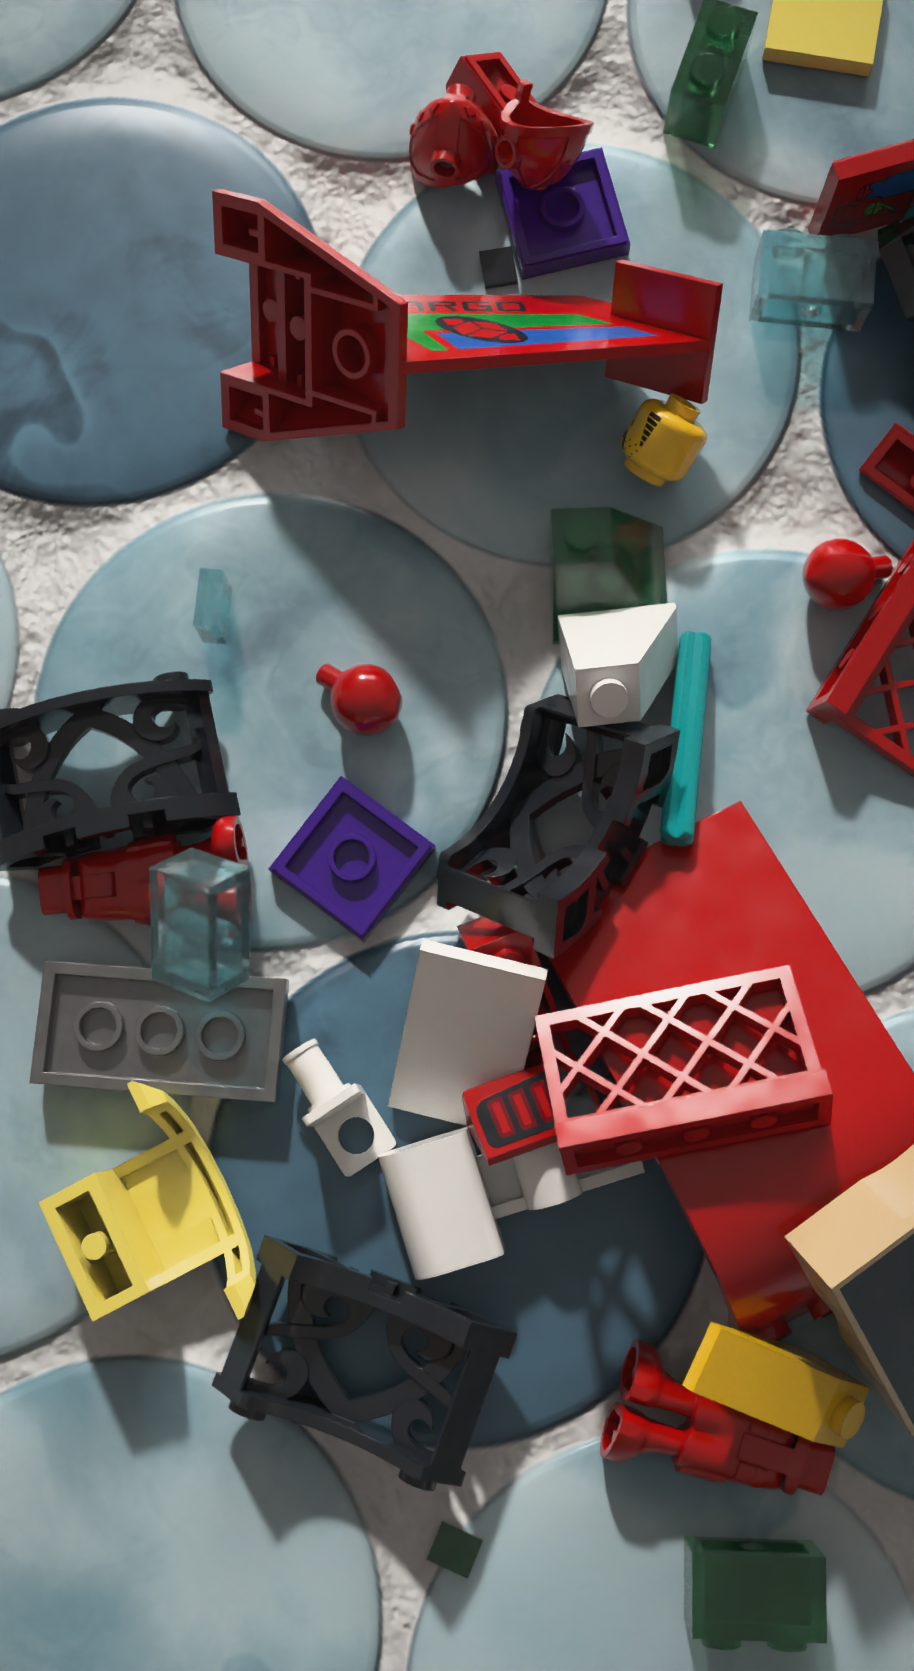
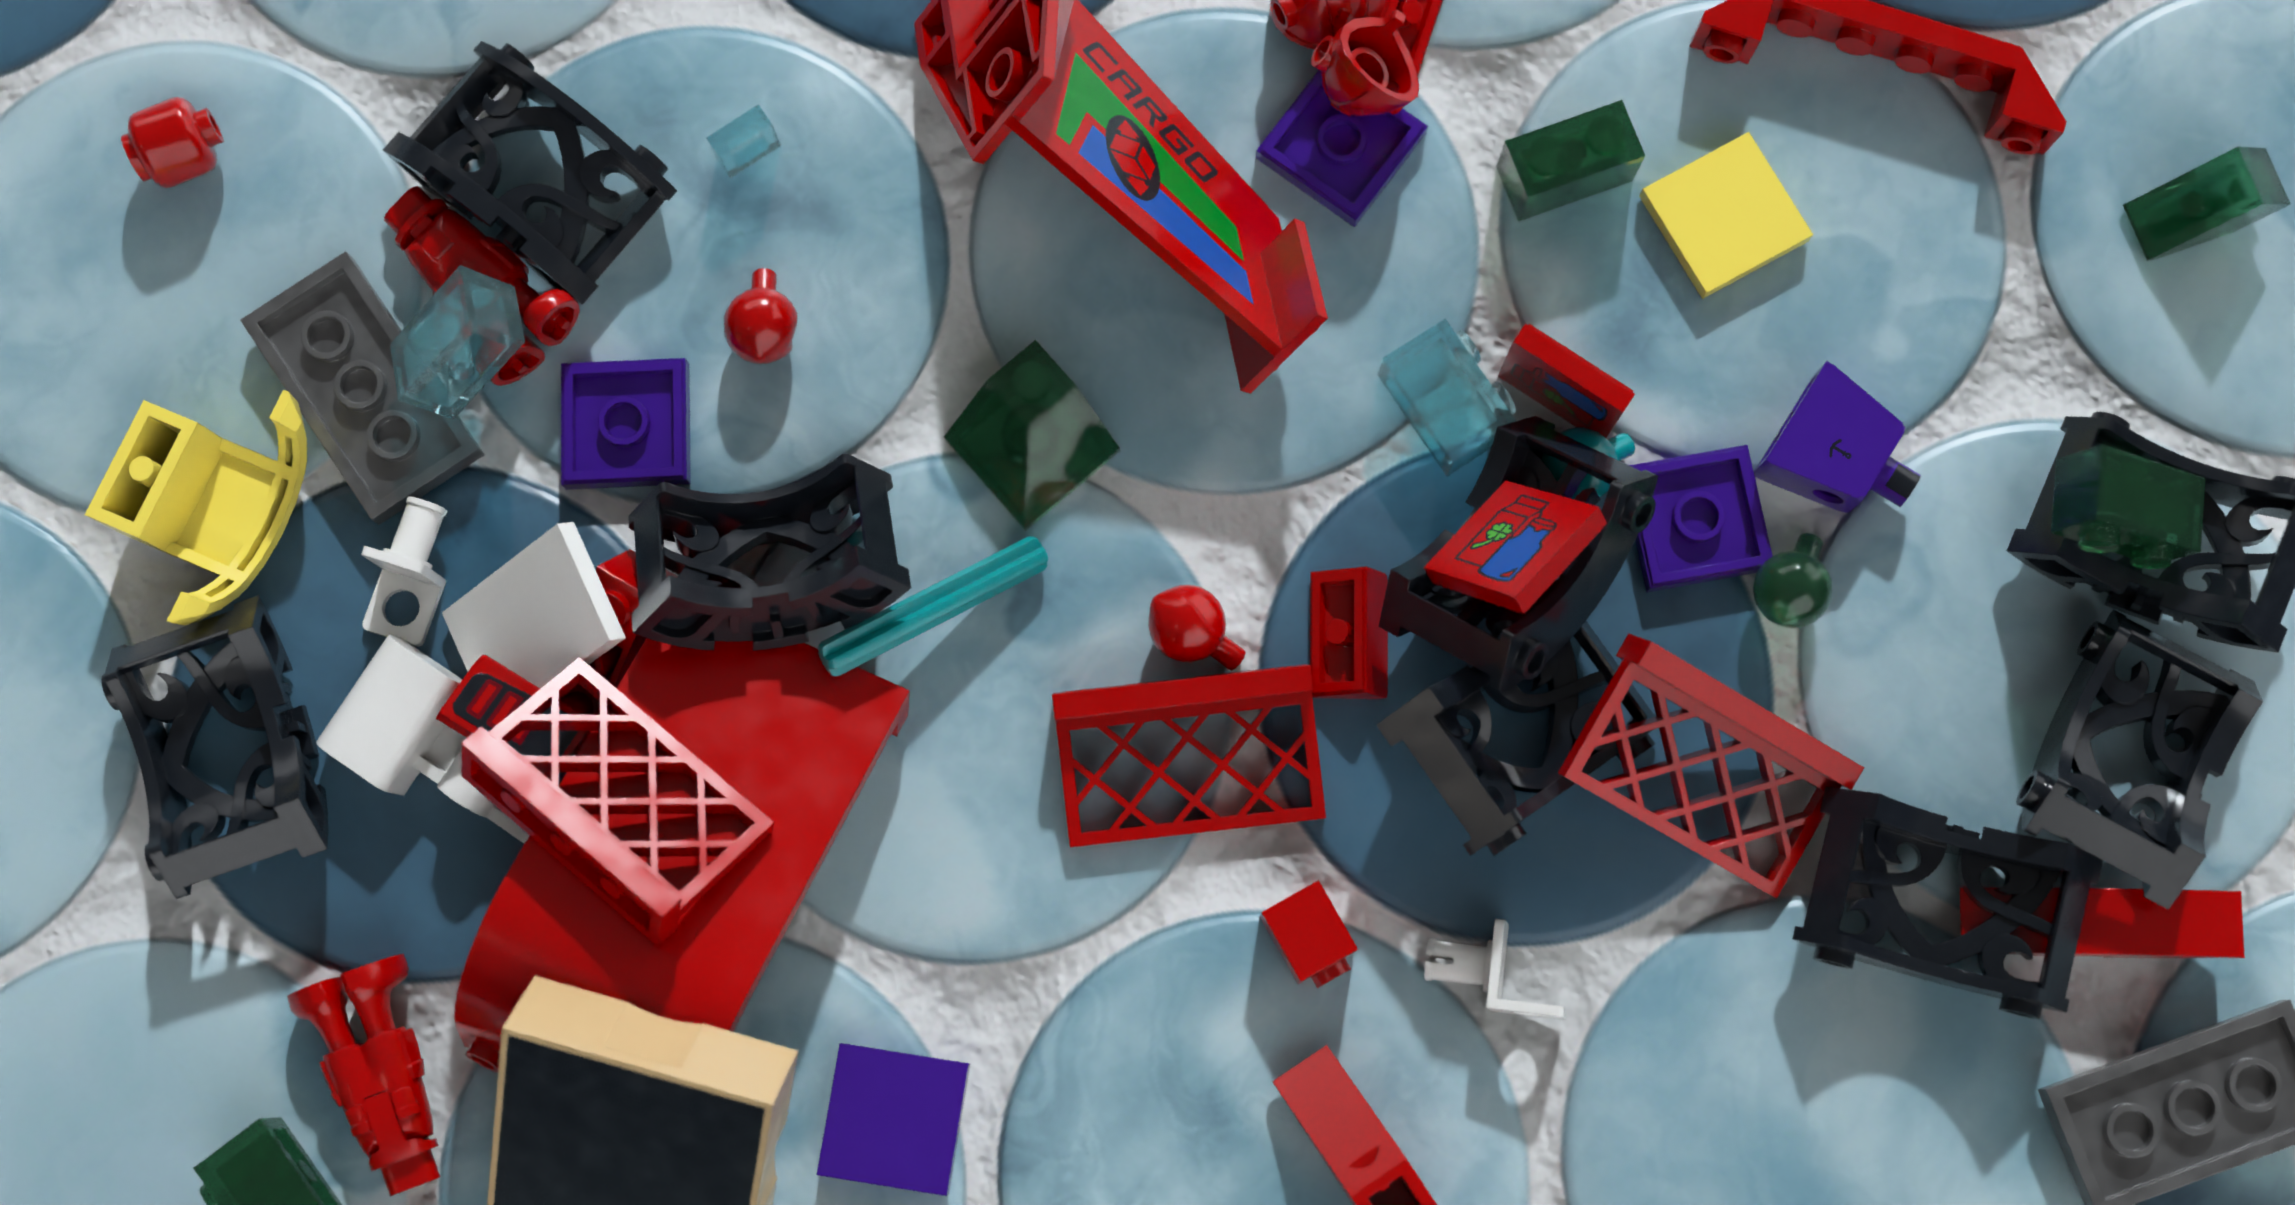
camera: 50 degrees right, 0 degrees up
(454, 1549) = (135, 943): clear green window -> none
(498, 267) = (1248, 129): black window -> none
(617, 660) = (946, 497): white slope -> none
(663, 440) = (1186, 385): yellow head -> none
(778, 1385) = (434, 1076): yellow slope -> none

